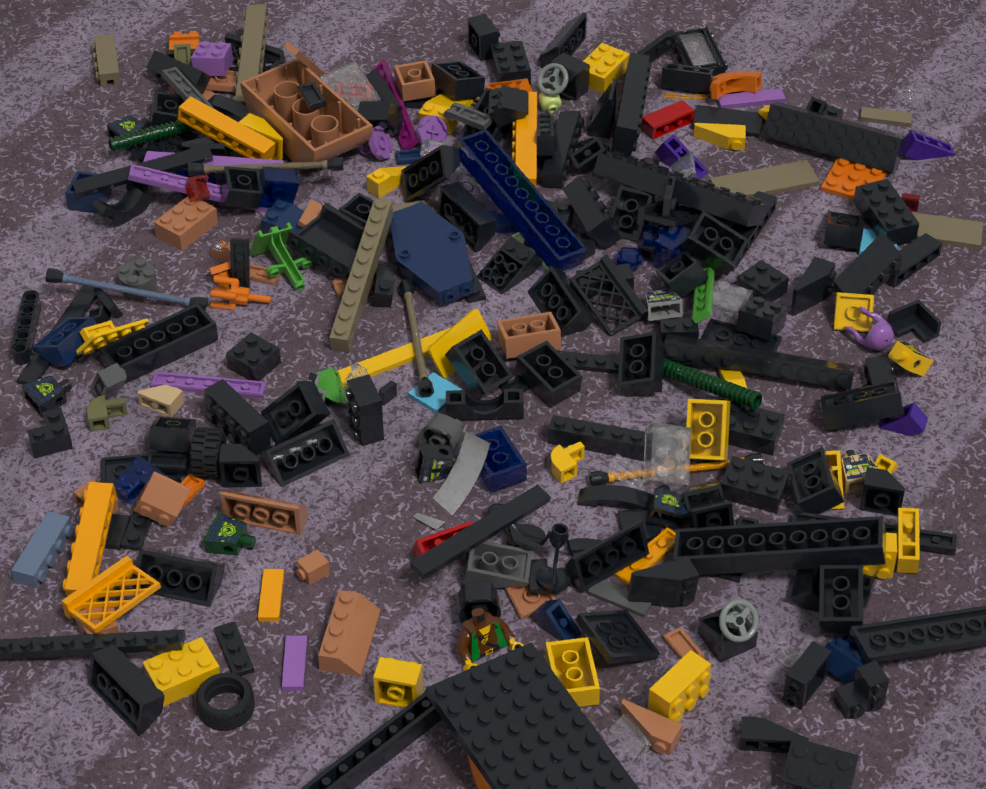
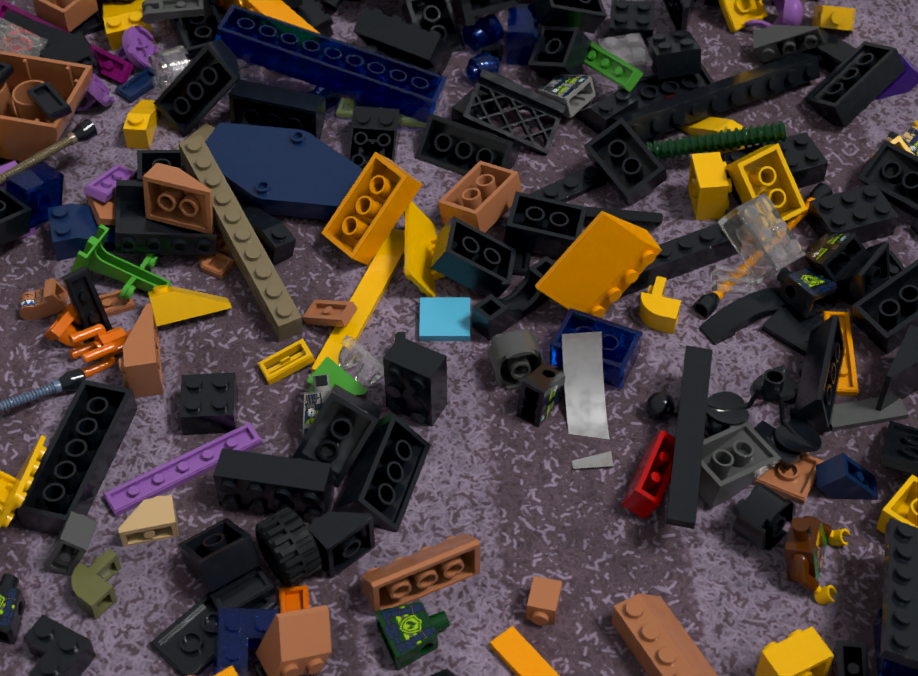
camera: 40 degrees left, 5 degrees up
(245, 309) = (142, 357): none -> nougat slope
(296, 295) = (178, 304): none -> yellow slope
(315, 204) = (104, 186): none -> medium lavender tile
(319, 361) = (287, 364): none -> yellow tile
(324, 133) = (49, 101): none -> black tile
(344, 230) = (177, 199): none -> nougat slope
(370, 349) = (329, 313): none -> nougat plate
(425, 386) = (434, 315): hose -> none
(449, 300) = (371, 208): none -> light orange brick
(534, 407) = (599, 265): none -> light orange slope
(607, 395) = (627, 215): none -> black tile
(673, 406) = (708, 186): none -> yellow brick
(847, 350) = (785, 40): none -> dark grey slope

